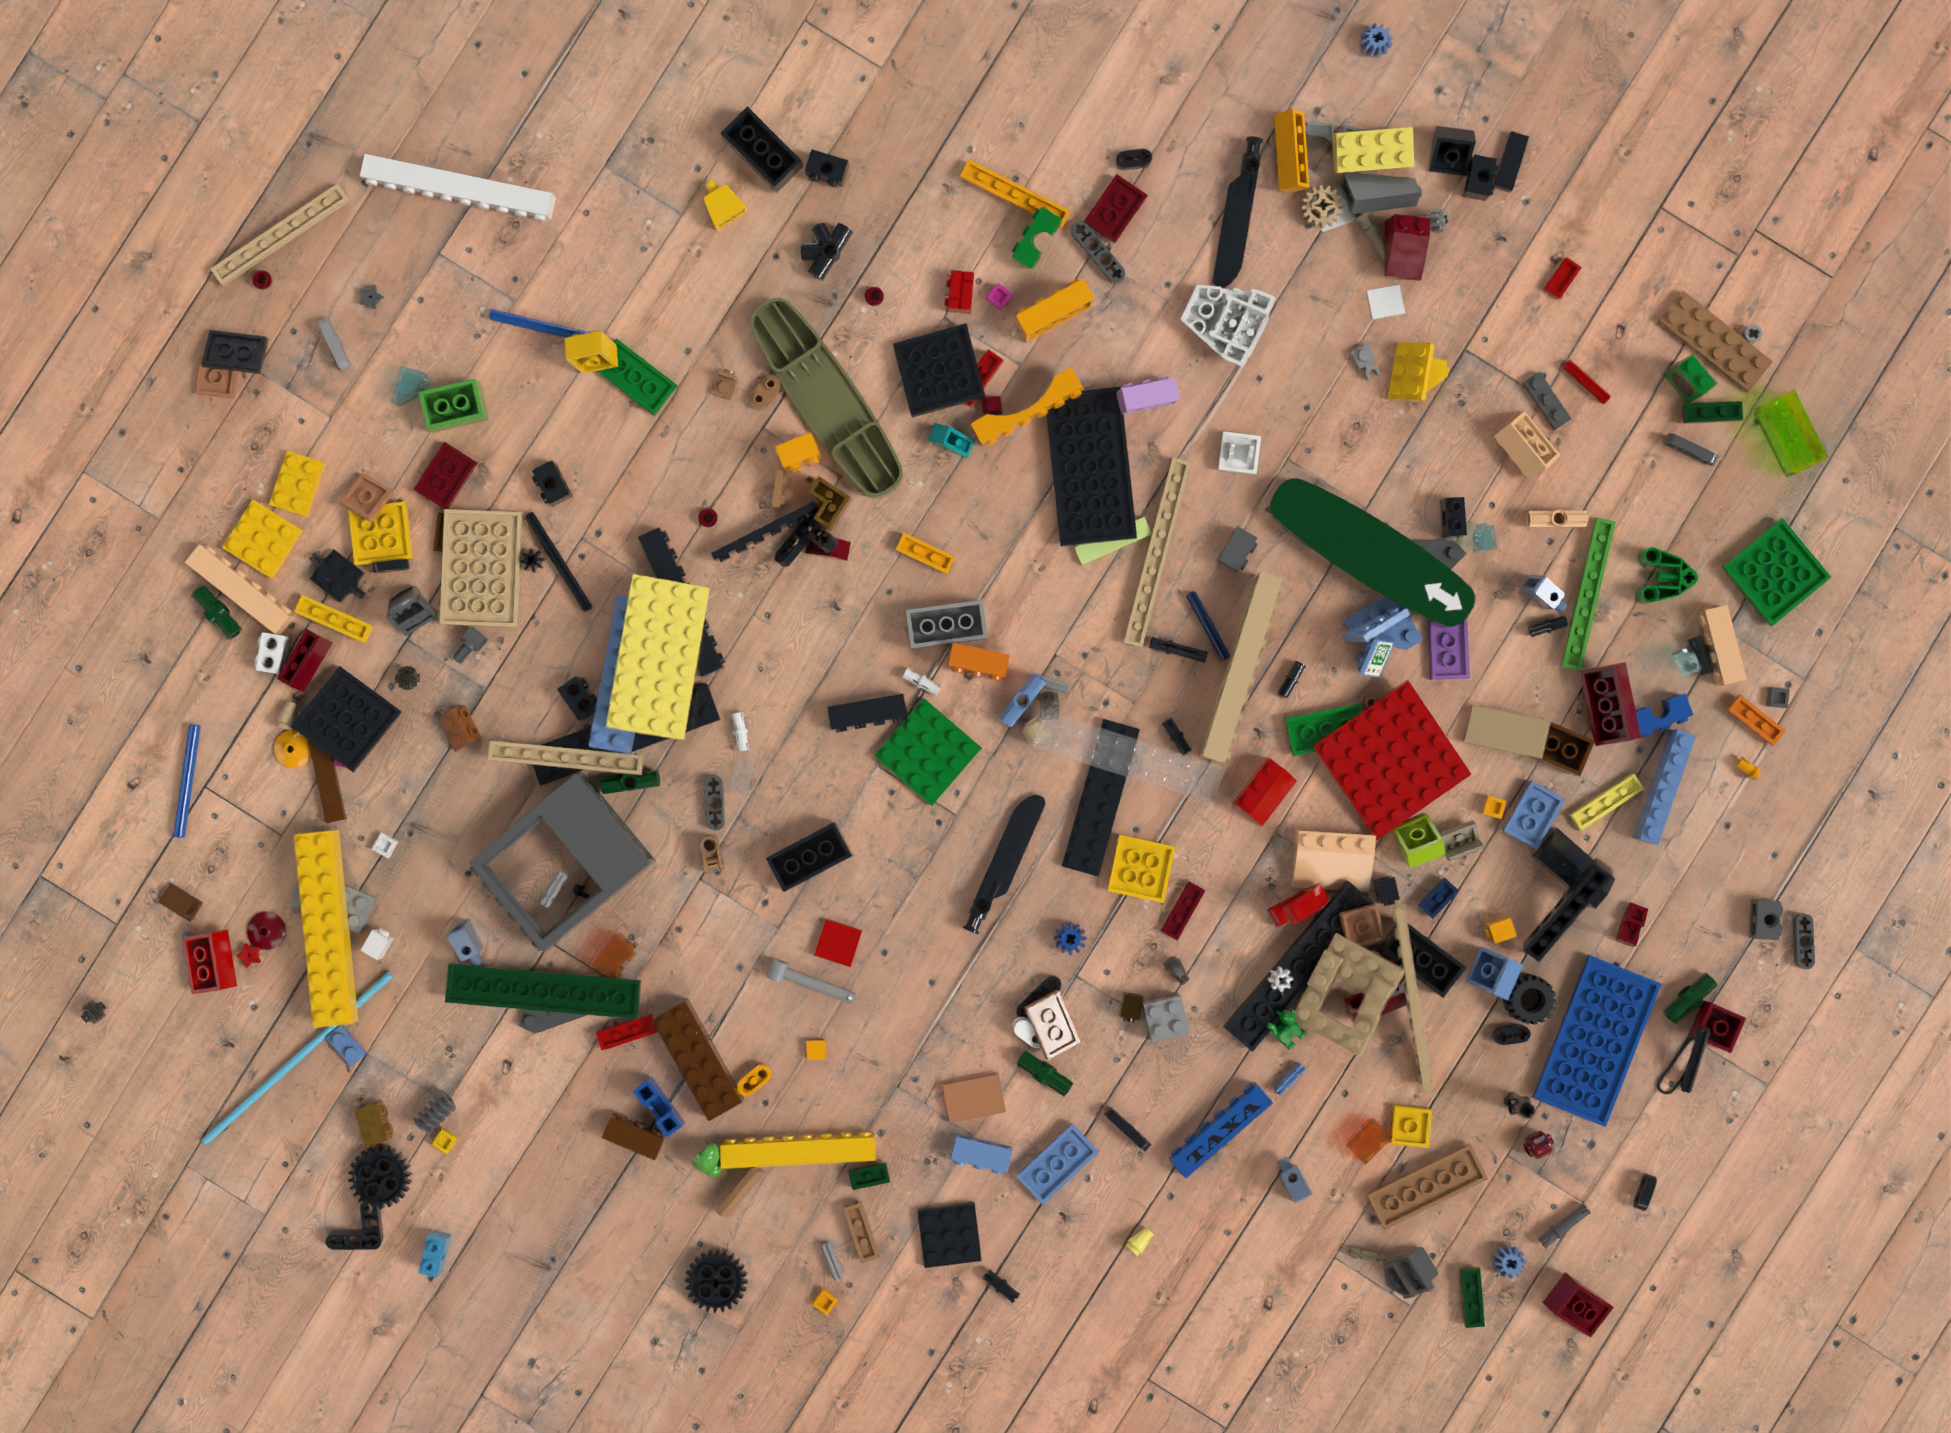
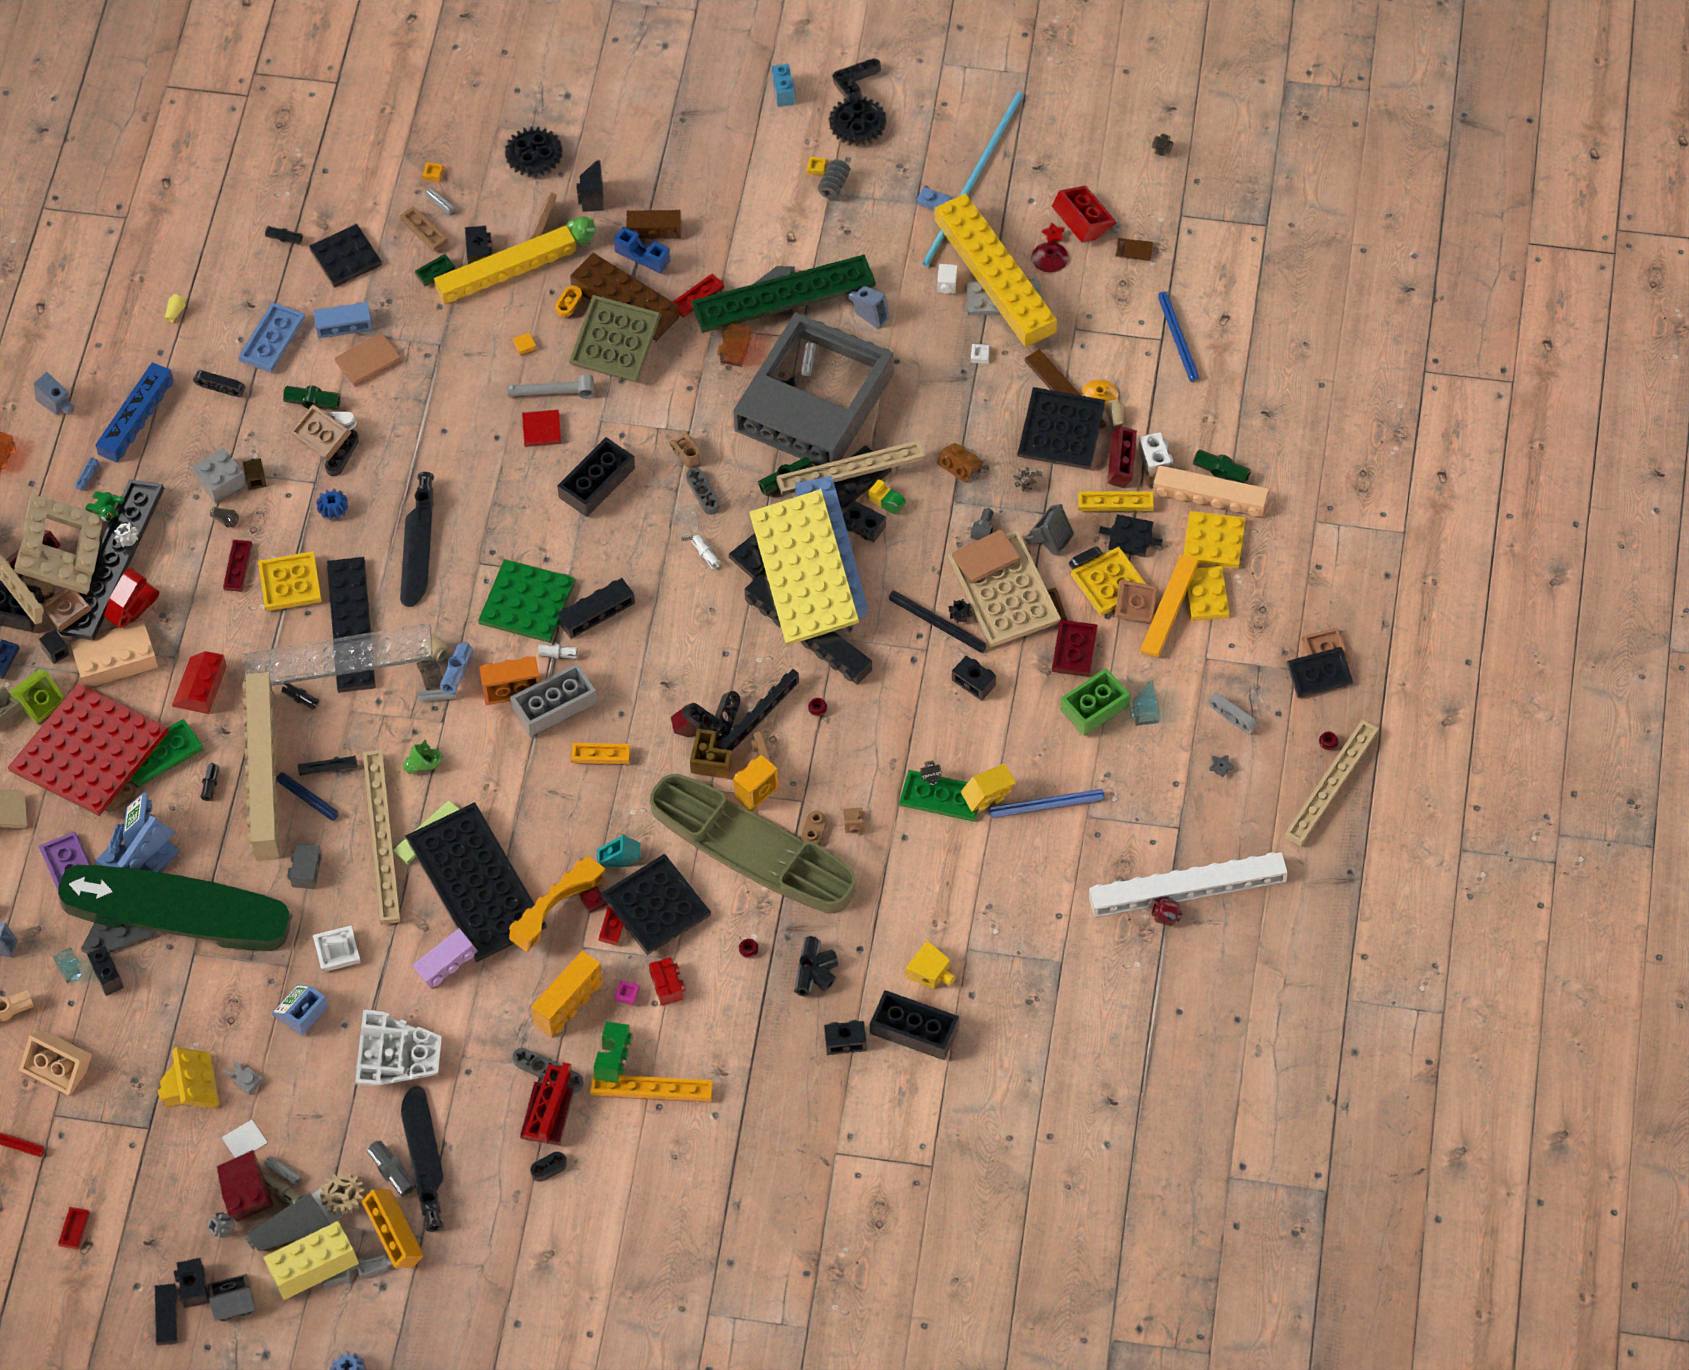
camera: 160 degrees right, 30 degrees down
(337, 481) = (1169, 606): none -> light orange tile
(374, 1123) = (882, 154): pearl gold brick -> none
(482, 605) = (985, 556): none -> nougat tile
(490, 167) = (1166, 912): none -> dark red head
(545, 715) = (886, 497): none -> leg
(636, 394) = (931, 772): none -> clear smoke gear
(678, 1202) = (591, 188): none -> black slope
(728, 1008) = (615, 338): none -> olive plate
(810, 1196) = (477, 243): none -> black brick
(1098, 614) = (422, 758): none -> bright green piece
(1109, 204) = (553, 1104): none -> red fence
(1270, 213) = (391, 1168): none -> dark grey piece
(1294, 404) = (301, 1008): none -> medium blue slope
(1364, 254) = (282, 1170): none -> light grey axle
(1397, 652) = (116, 839): none -> medium blue axle
(1546, 401) = (49, 1112): dark grey plate -> none

